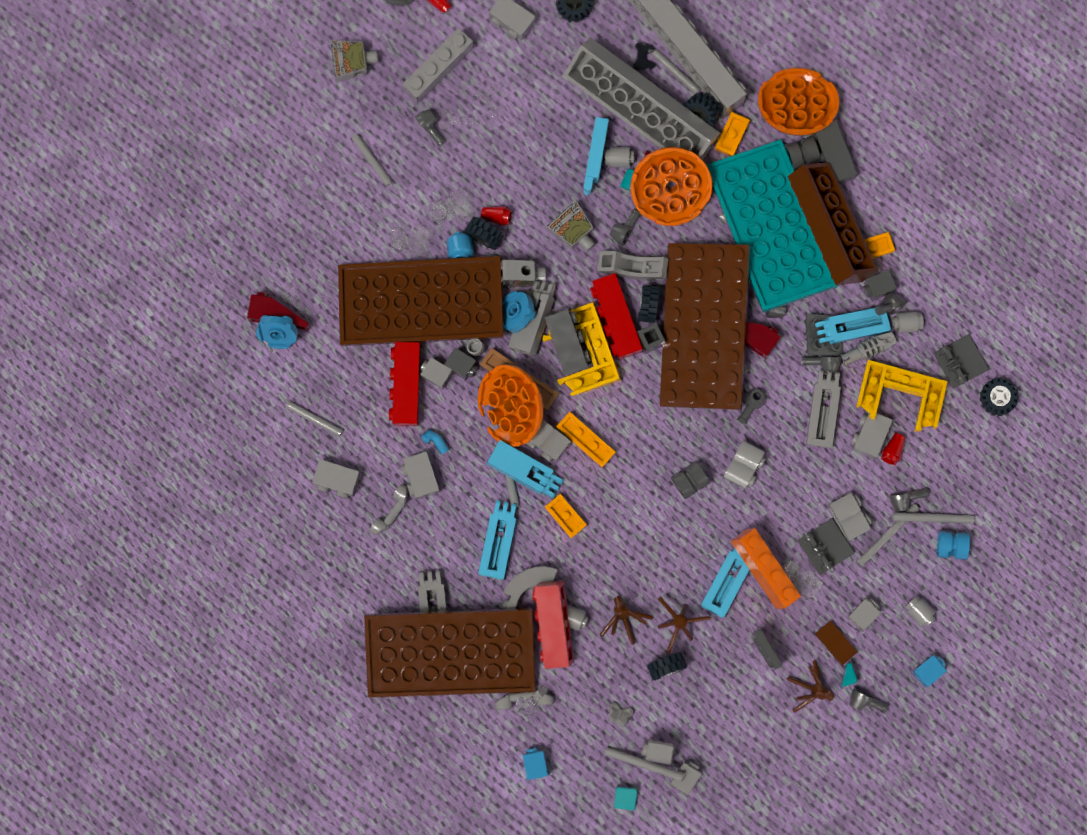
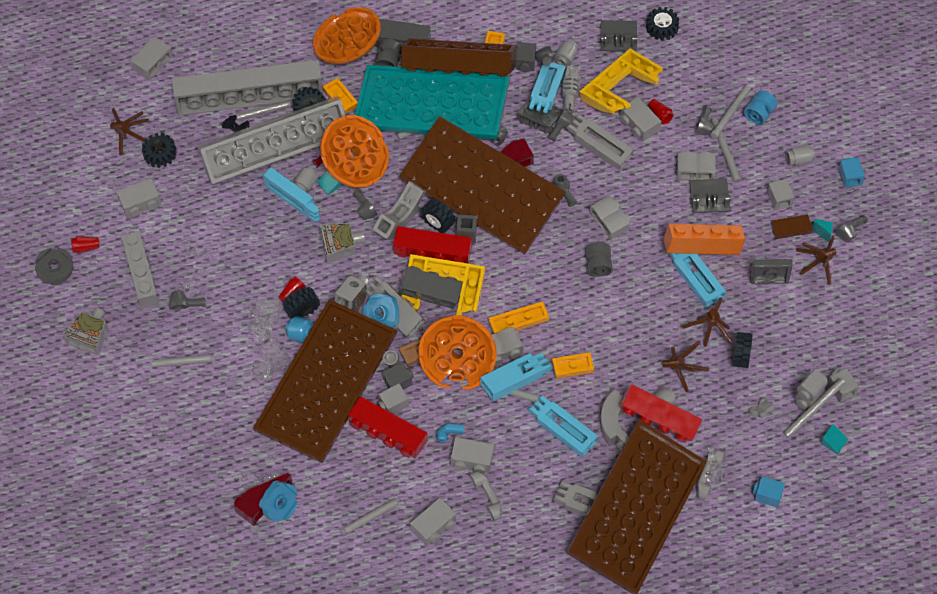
camera: 60 degrees left, 20 degrees down
(805, 583) = (730, 216): clear brick -> none

